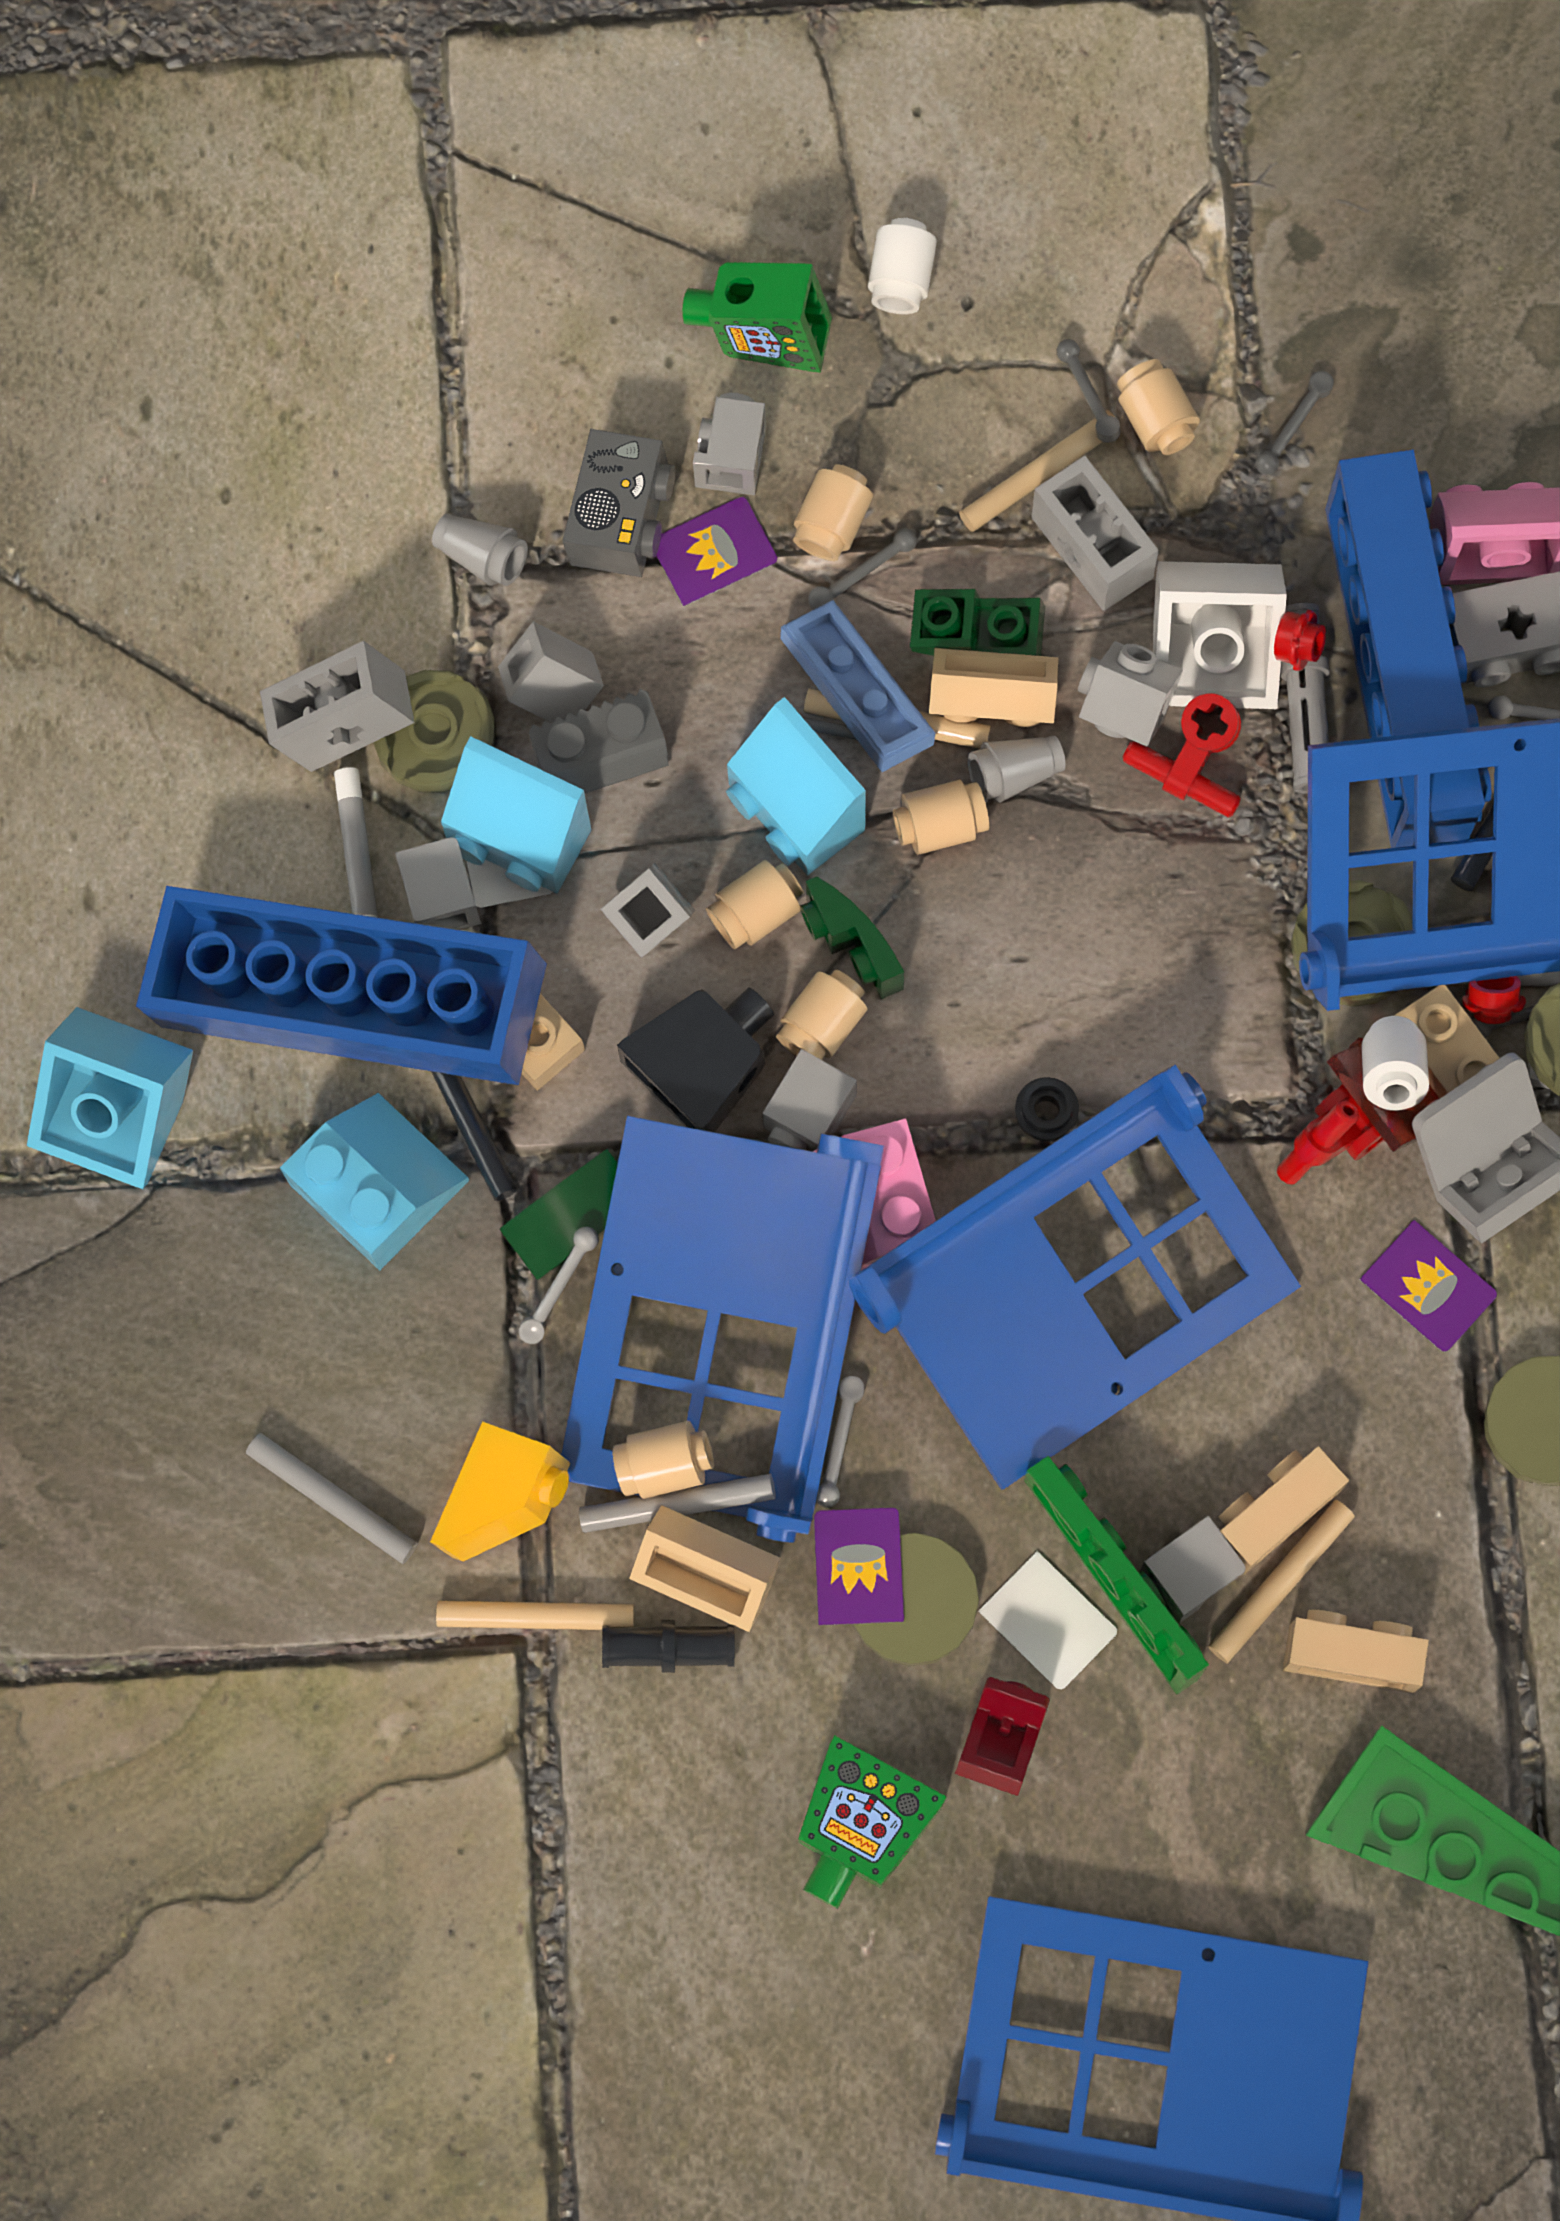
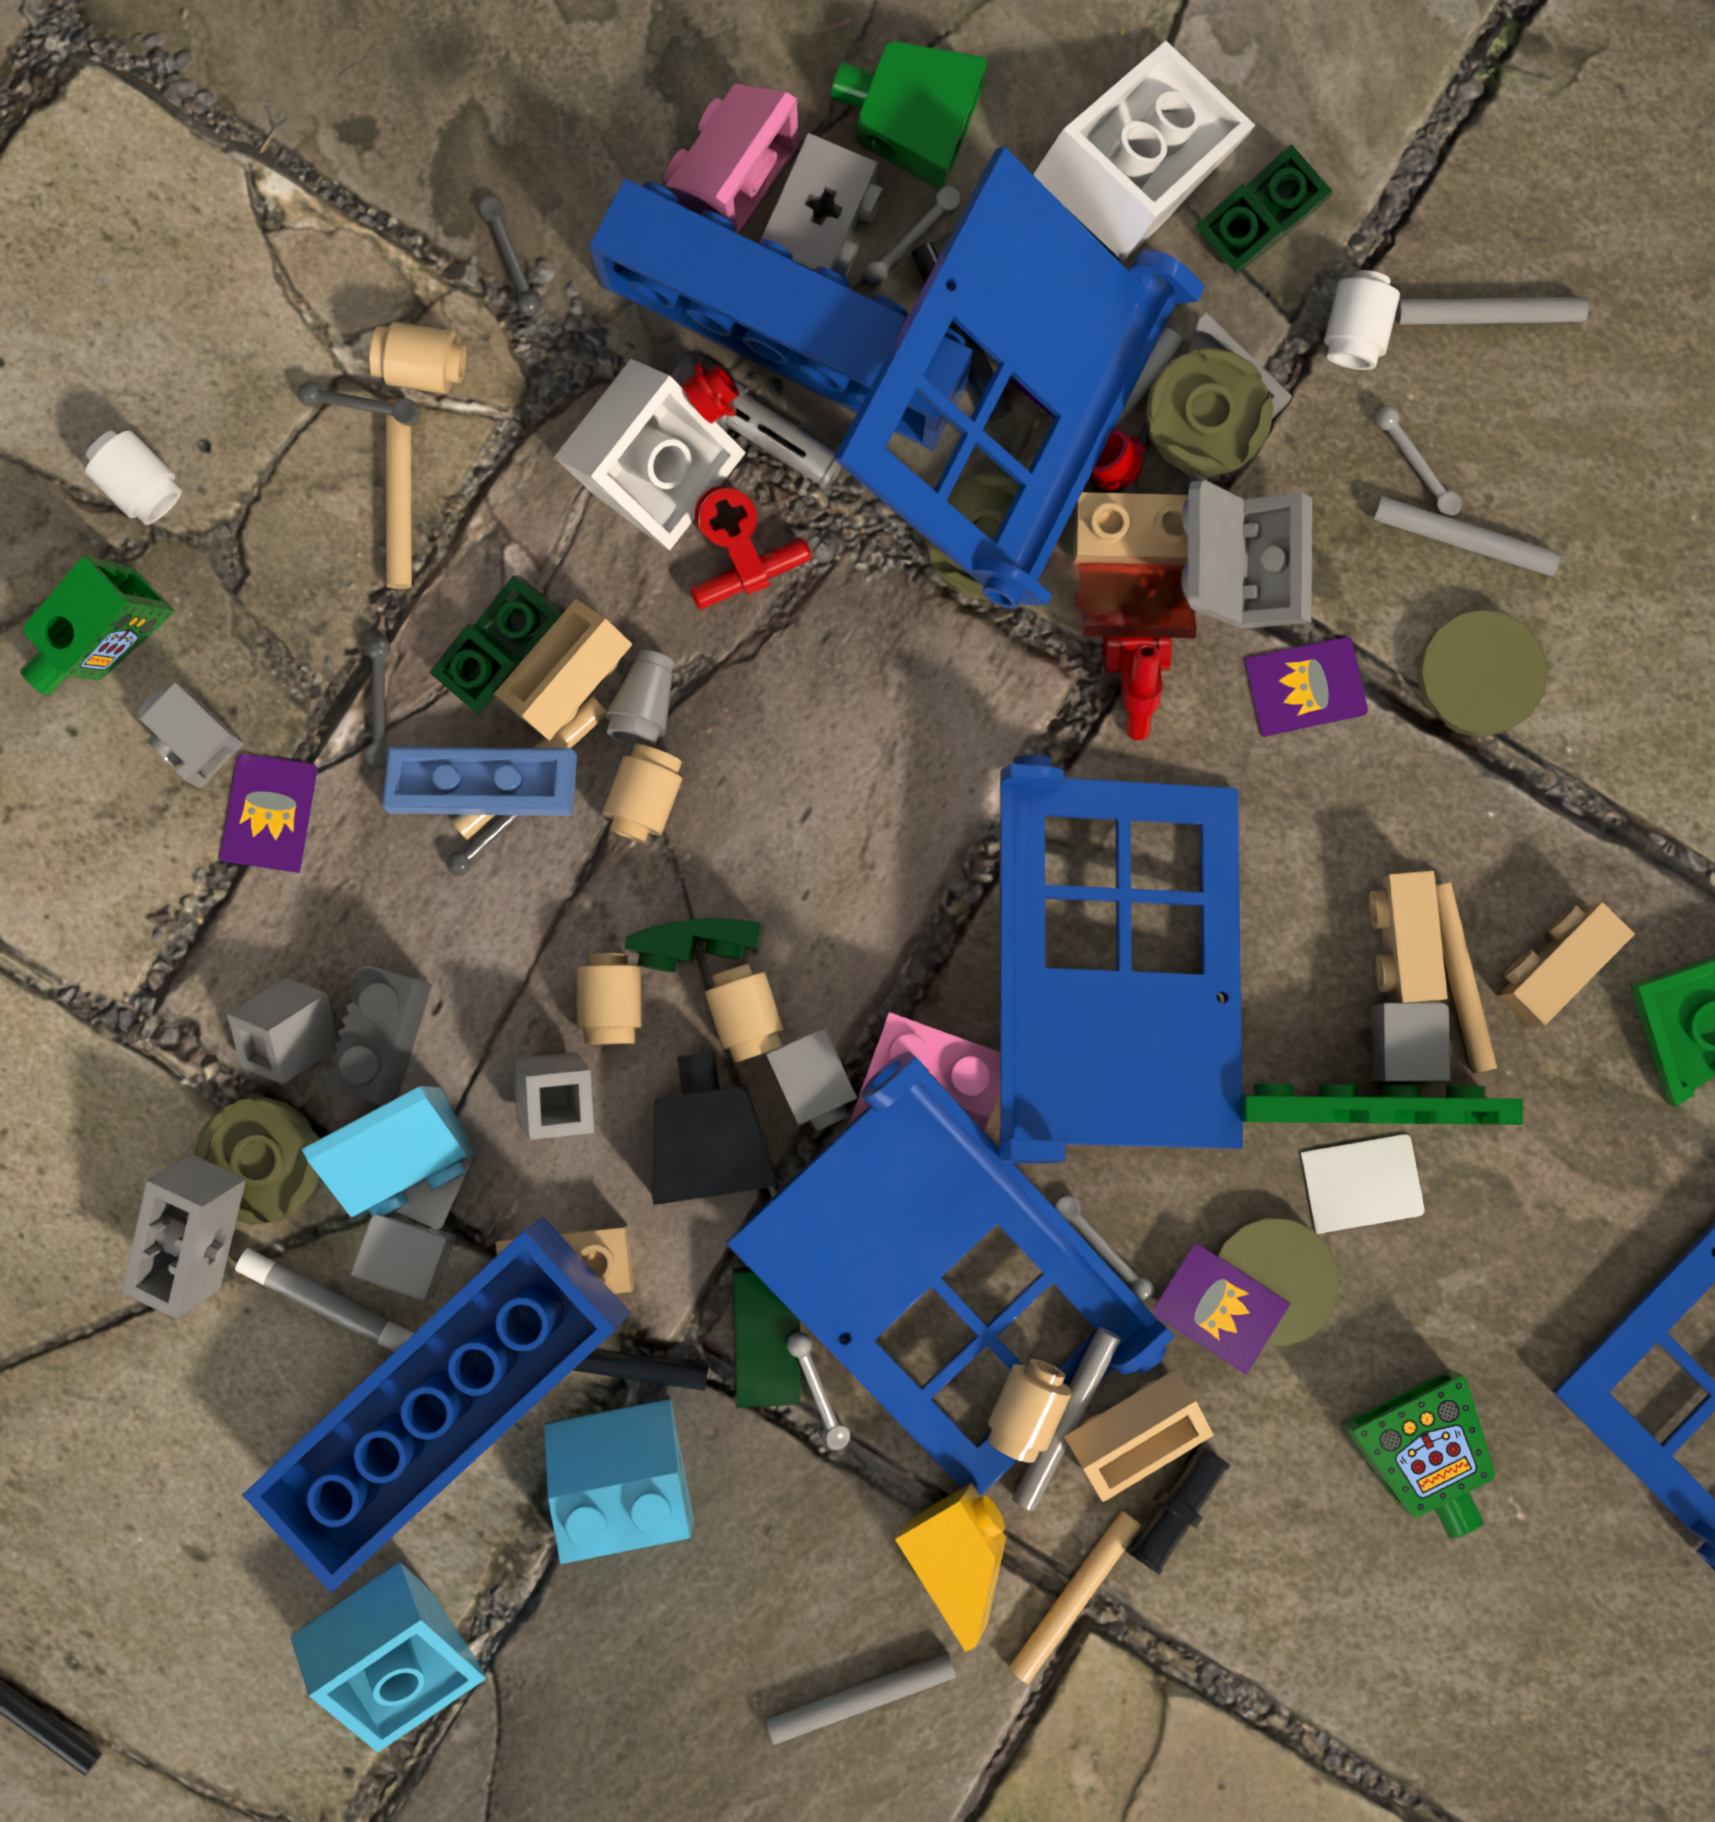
camera: 60 degrees left, 10 degrees up
(482, 548) = (126, 1008): light grey cone -> none
(618, 503) = (171, 865): dark grey brick -> none
(796, 789) = (537, 900): medium azure slope -> none
(832, 512) = (310, 692): tan brick -> none
(1003, 1735) = (1438, 1291): dark red bracket -> none
(1048, 1090) = (955, 865): black plate -> none
(1094, 533) = (491, 490): light grey brick -> none
(1128, 692) = (650, 563): light grey brick -> none
(1395, 1063) = (1125, 582): white brick -> none

